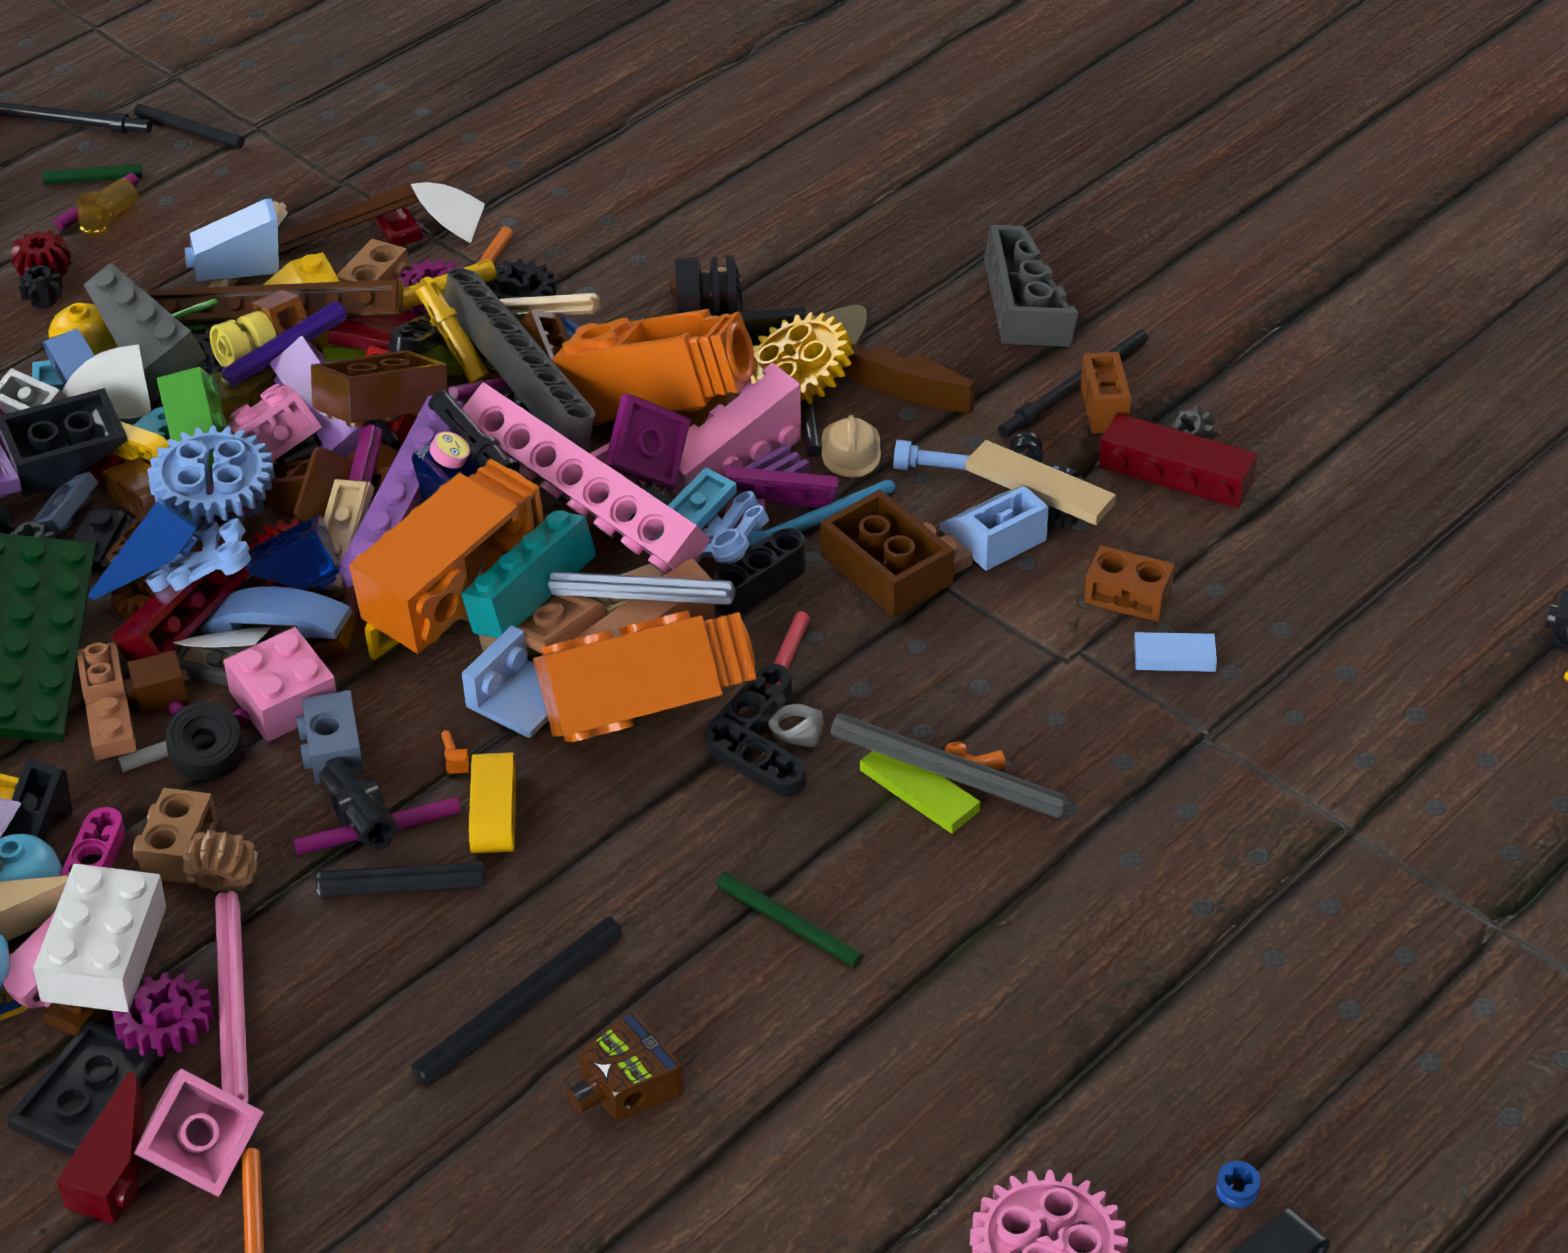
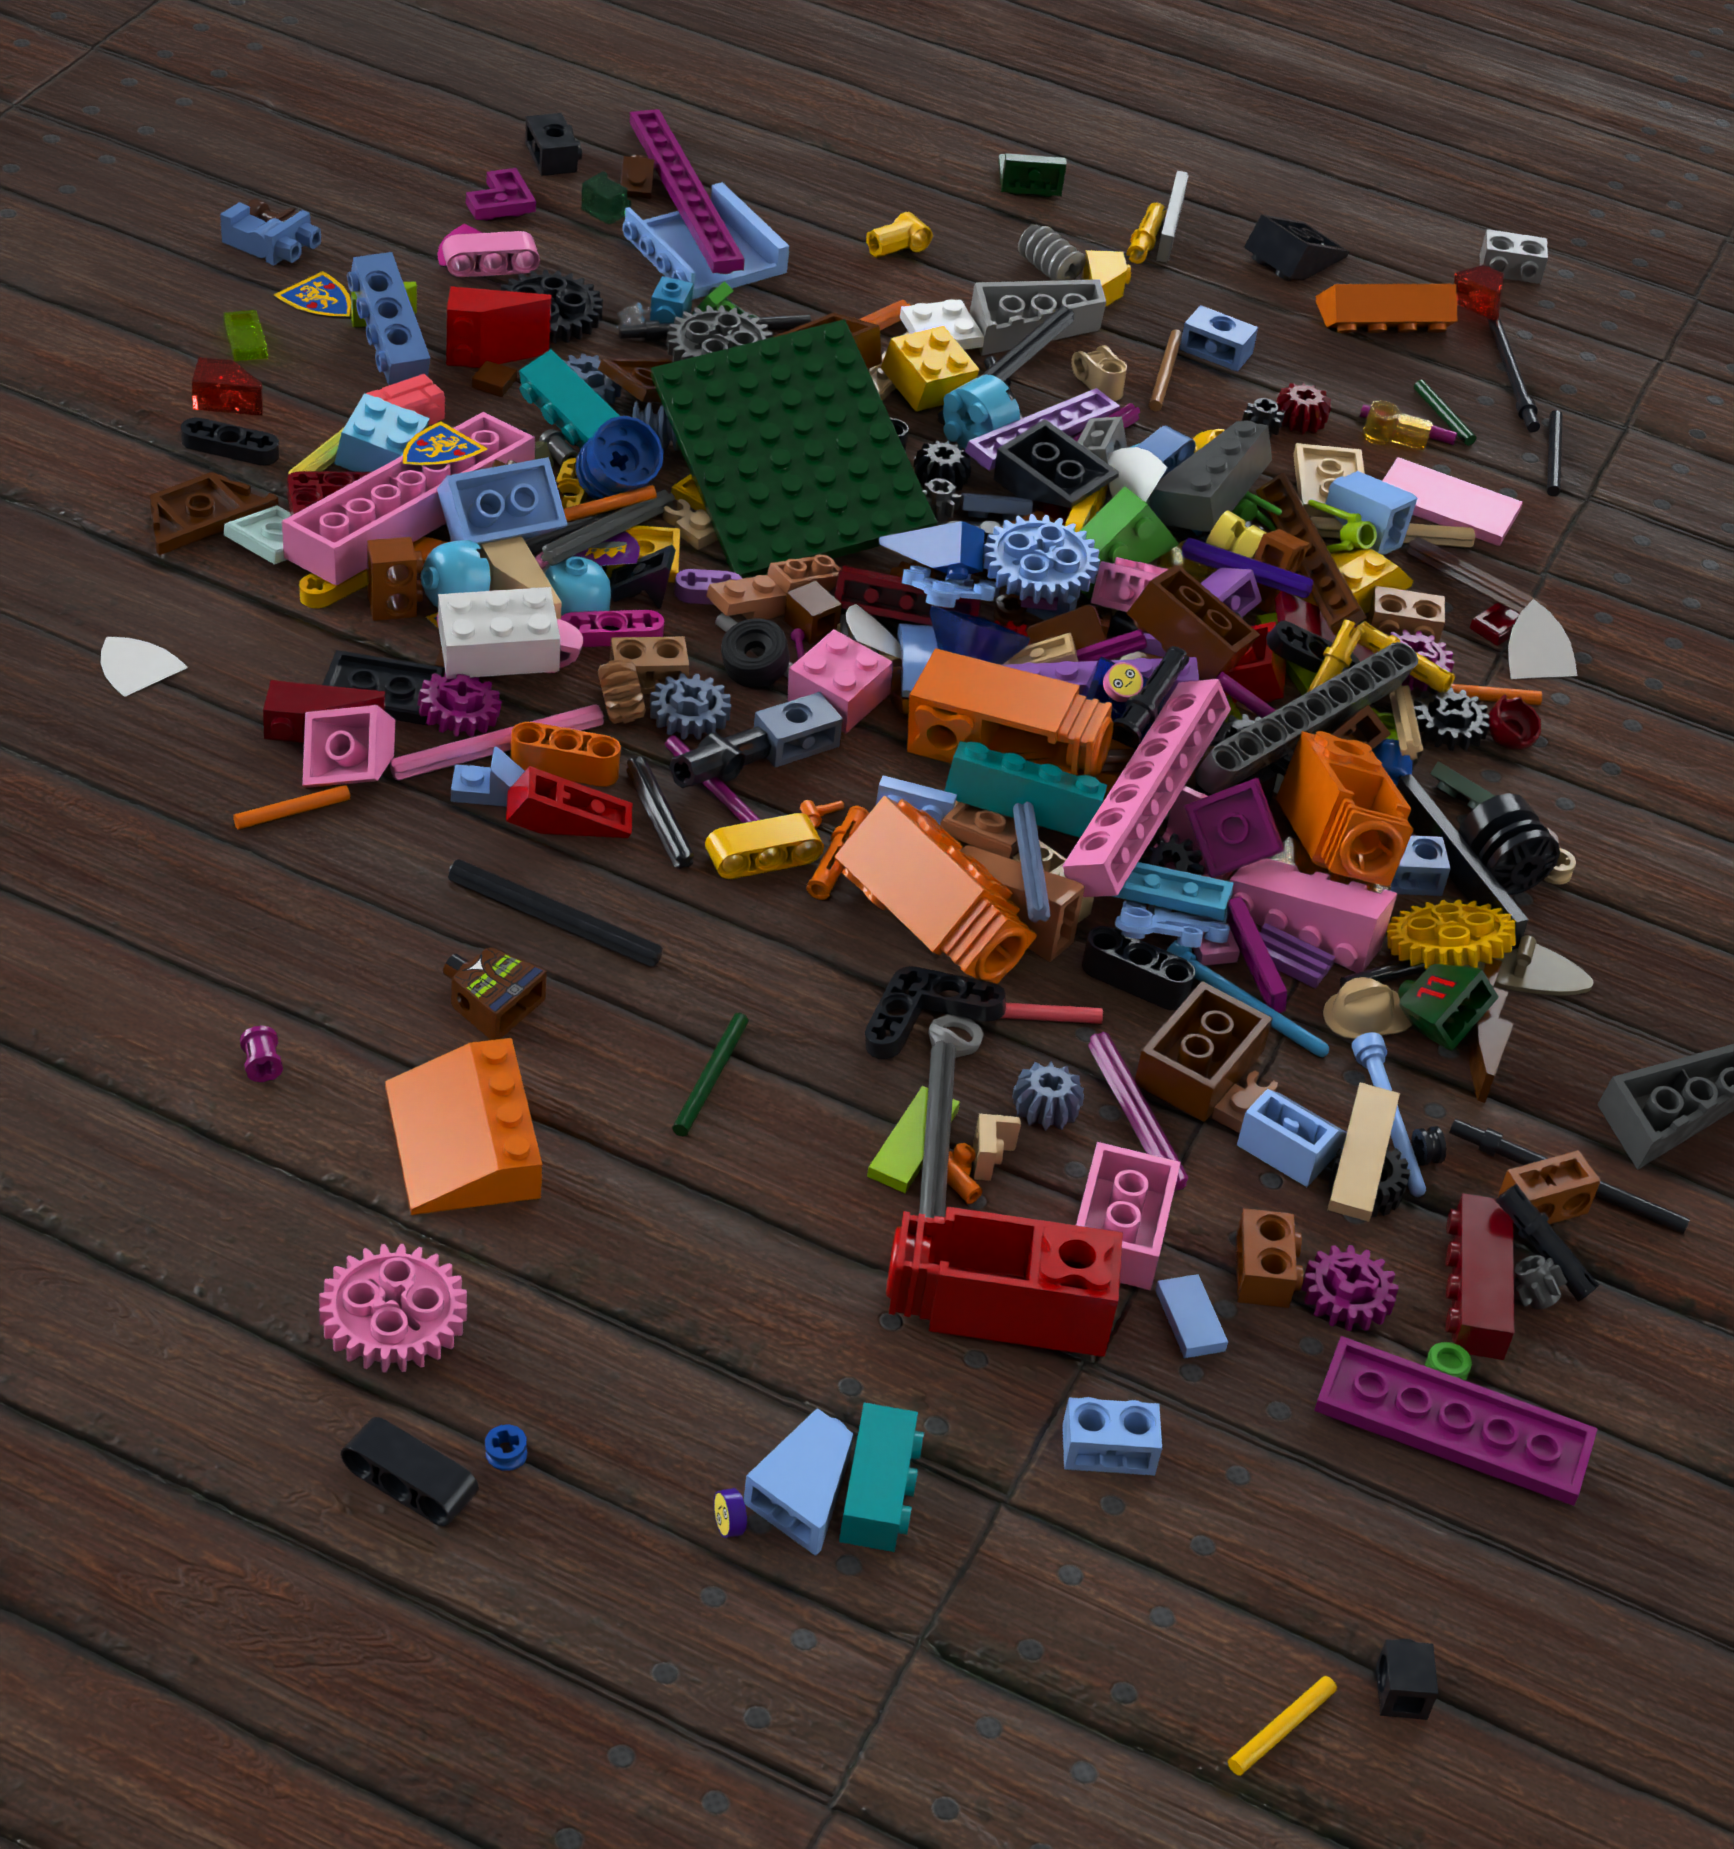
camera: 65 degrees right, 0 degrees up
(77, 760) = (693, 584): none -> medium lavender beam
(152, 264) = (1318, 467): none -> tan plate
(215, 202) = (1455, 501): none -> bright pink tile
(259, 812) = (690, 706): none -> sand blue gear
(264, 266) = (1353, 535): none -> lime plant
(285, 937) = (566, 753): none -> orange beam
(296, 1019) = (485, 784): none -> light blue slope
(372, 954) = (565, 807): none -> red slope
(508, 738) = (824, 877): none -> orange pin
(544, 250) = (1514, 723): none -> dark red hair
(627, 300) = (1454, 783): none -> sand green plate
(816, 1133) = (465, 1130): none -> orange slope
(880, 387) = (1446, 1002): none -> dark green torso
(901, 674) = (1048, 1095): none -> sand blue gear
(928, 622) = (1133, 1102): none -> magenta axle
(949, 727) = (991, 1137): none -> tan bracket
(1069, 656) = (1130, 1196): none -> bright pink brick
(1140, 745) = (1007, 1279): none -> red piece
(1152, 407) = (1541, 1235): none -> black pin
(1175, 539) = (1349, 1287): none -> magenta gear
(1257, 511) = (1449, 1359): none -> bright green tile
(1306, 733) = (1112, 1436): none -> light blue brick
(1320, 523) = (1457, 1420): none -> magenta plate
(1324, 955) = (802, 1480): none -> light blue slope
(1328, 902) = (881, 1477): none -> teal brick
(1352, 1020) = (730, 1512): none -> dark purple tile

